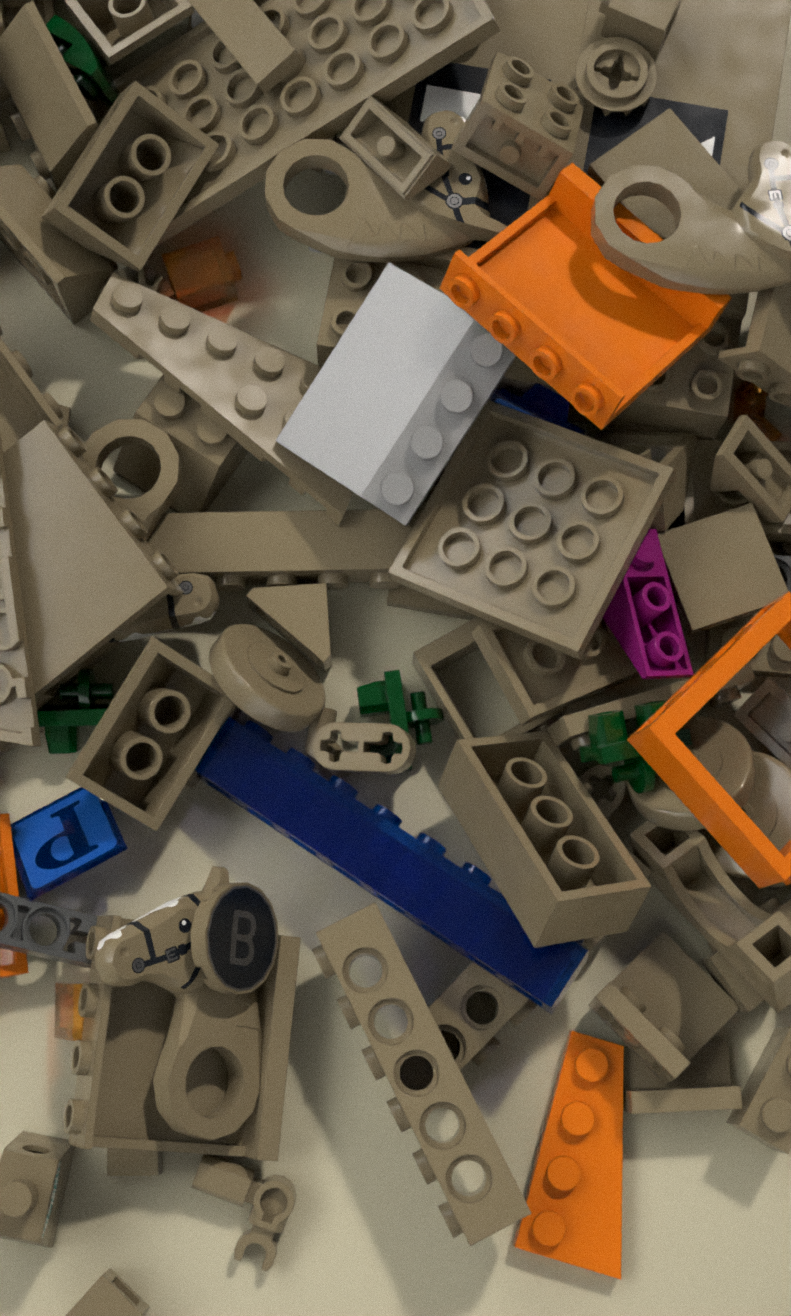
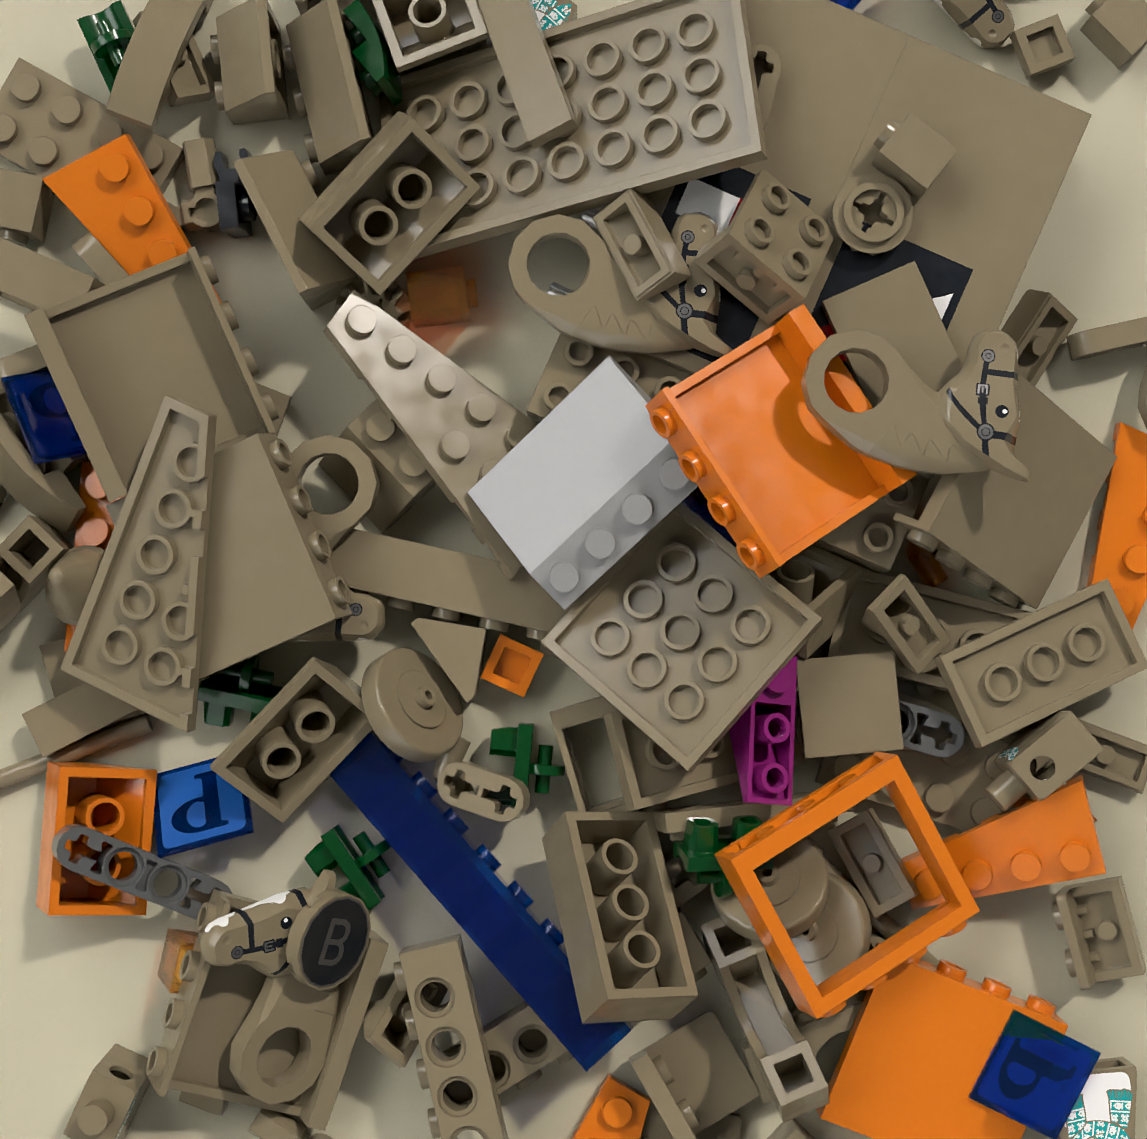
camera: 20 degrees right, 10 degrees up
(220, 853) = (338, 850): none -> dark green hips
(321, 1019) = (386, 1022): none -> dark tan slope
(361, 621) = (512, 665): none -> orange plate

